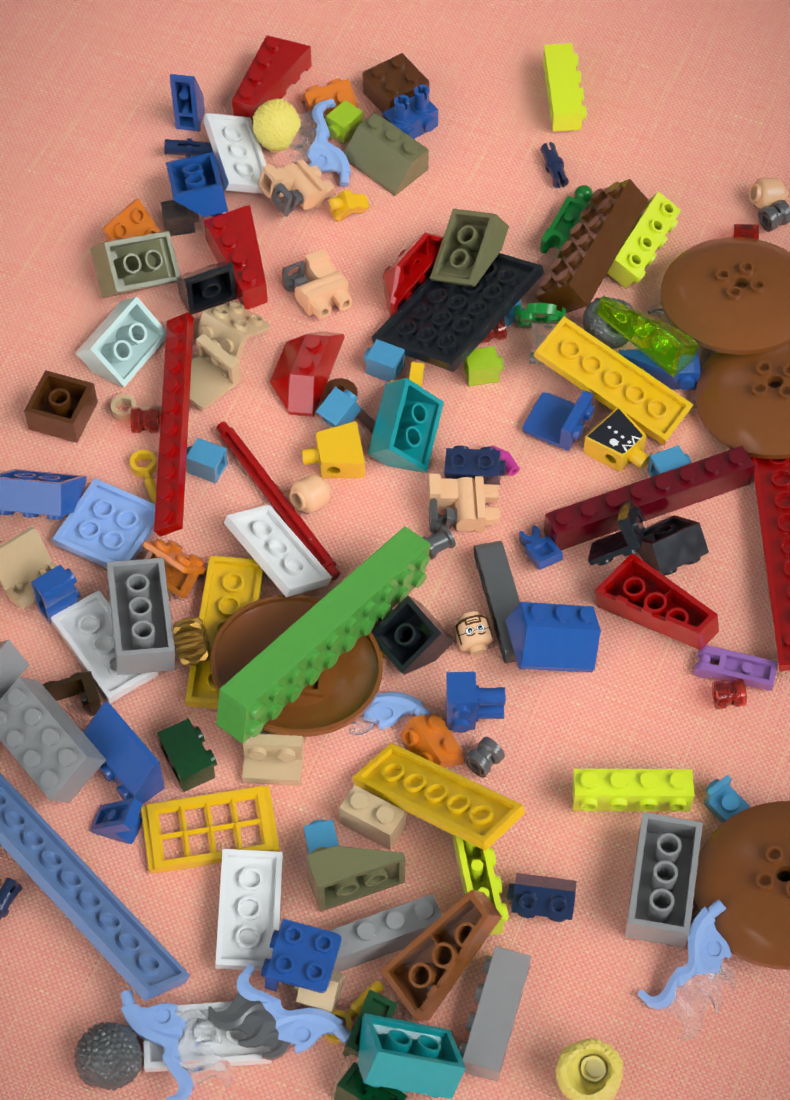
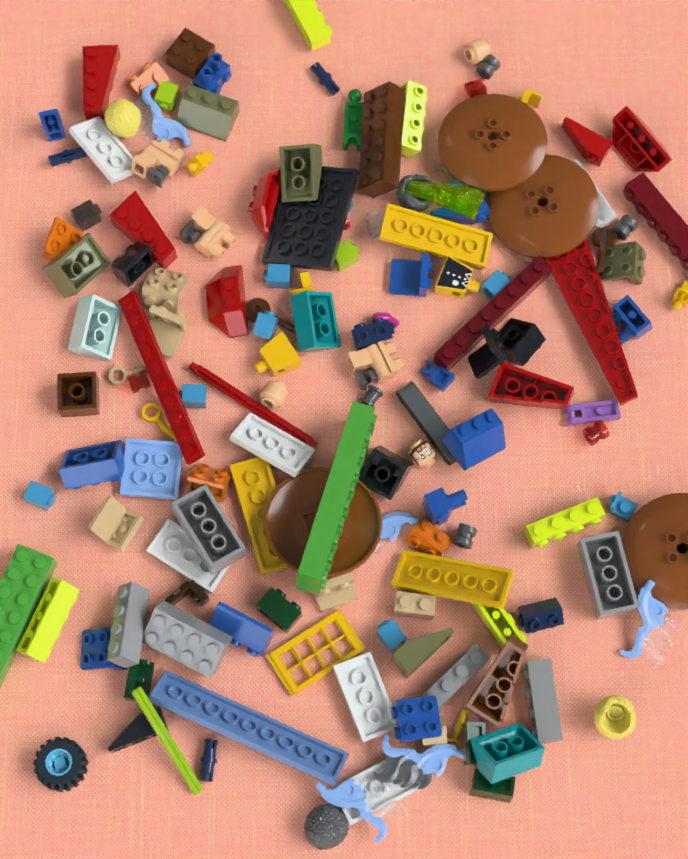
camera: 25 degrees left, 15 degrees up
(55, 591) = (143, 533): blue brick -> none
(118, 820) = (256, 671): blue slope -> none
(191, 641) = (250, 534): pearl gold gear -> none
(197, 184) = (91, 187): blue slope -> none
(538, 313) = (362, 207): green plate -> none

